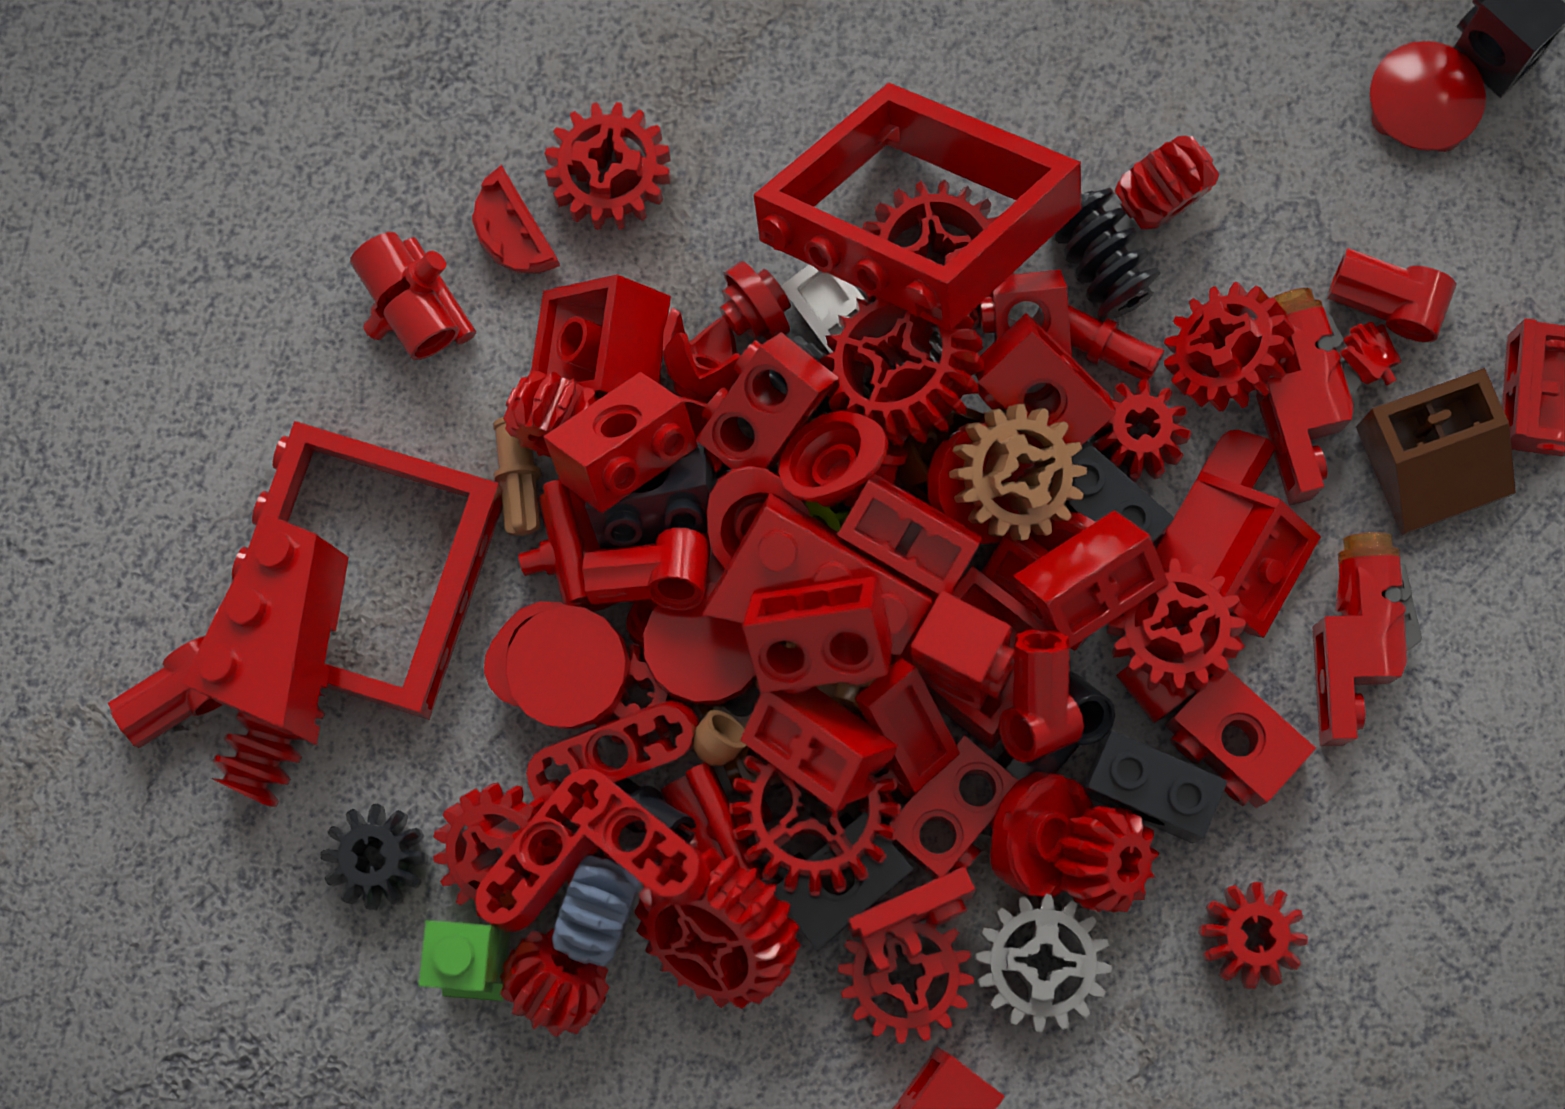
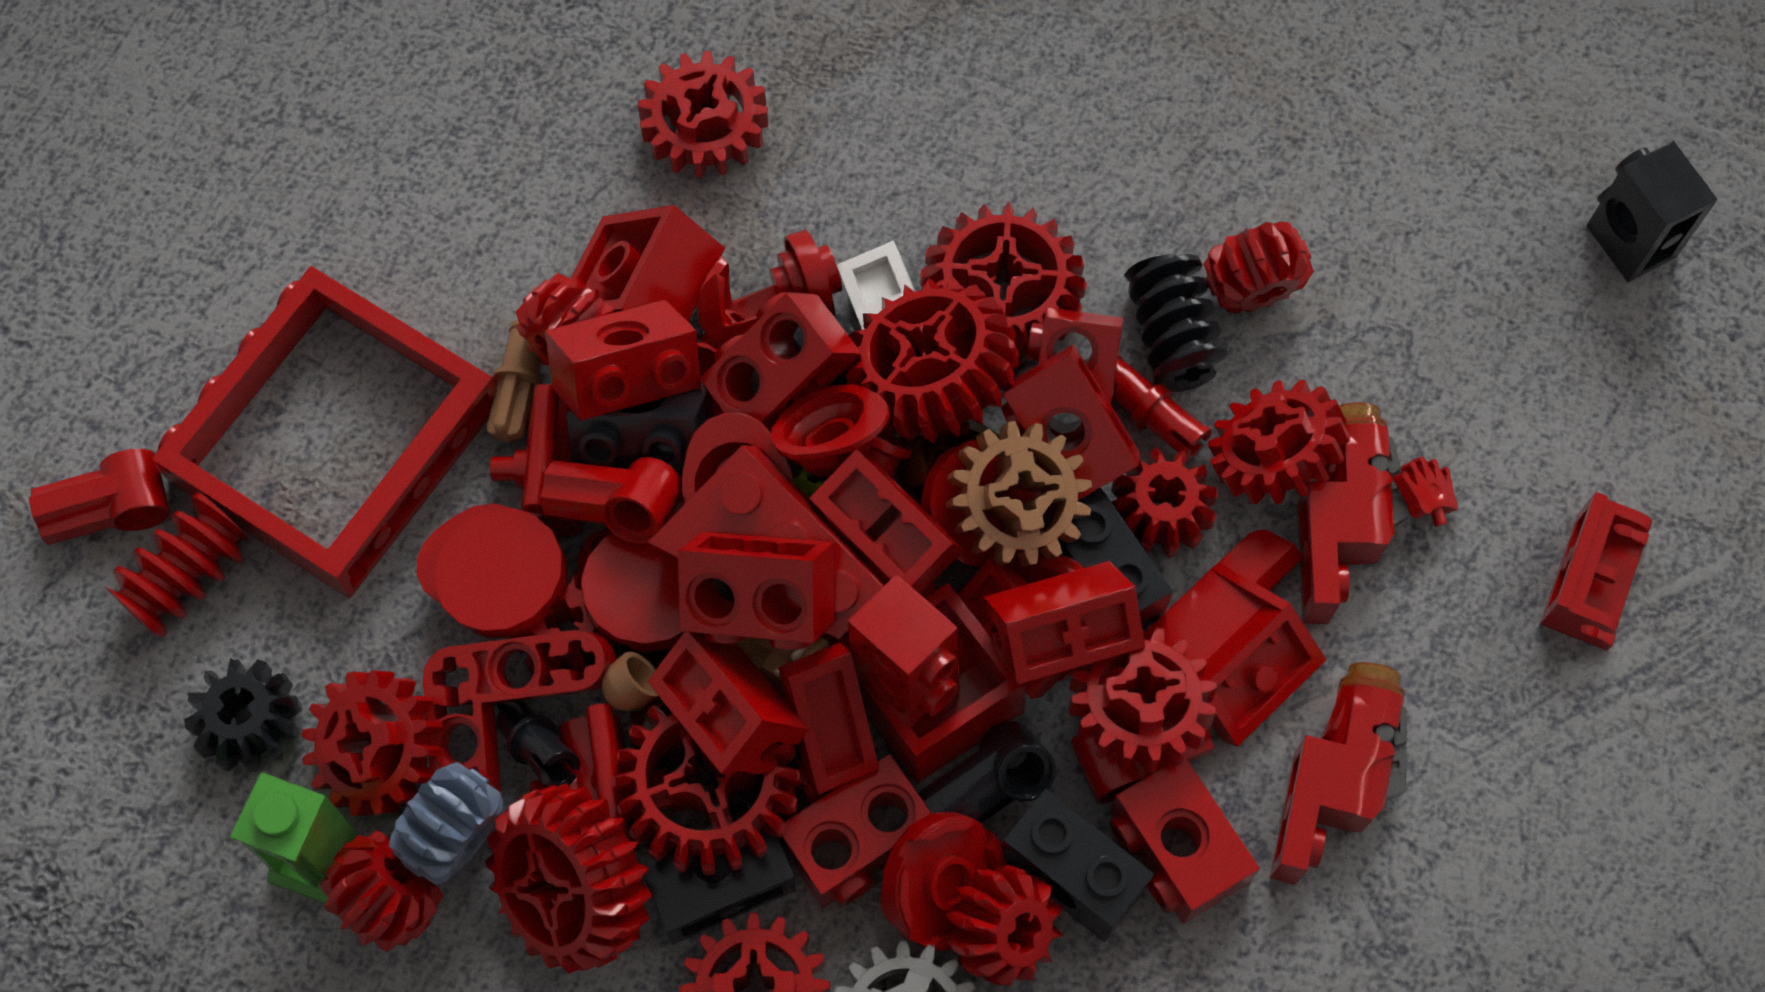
camera: 10 degrees right, 10 degrees down
(274, 630) = (213, 448): red wedge -> none
(409, 295) = (467, 182): red pin -> none
(508, 228) = (586, 148): red plate -> none
(596, 827) = (471, 732): red beam -> none
(937, 900) = (804, 911): red plate -> none
(1035, 176) = (1116, 222): red window -> none
(1043, 710) = (975, 744): red piece -> none
(1408, 298) = (1479, 447): red piece -> none
(1427, 96) = (1550, 259): red dish -> none
(1440, 451) = (1474, 603): reddish brown slope -> none

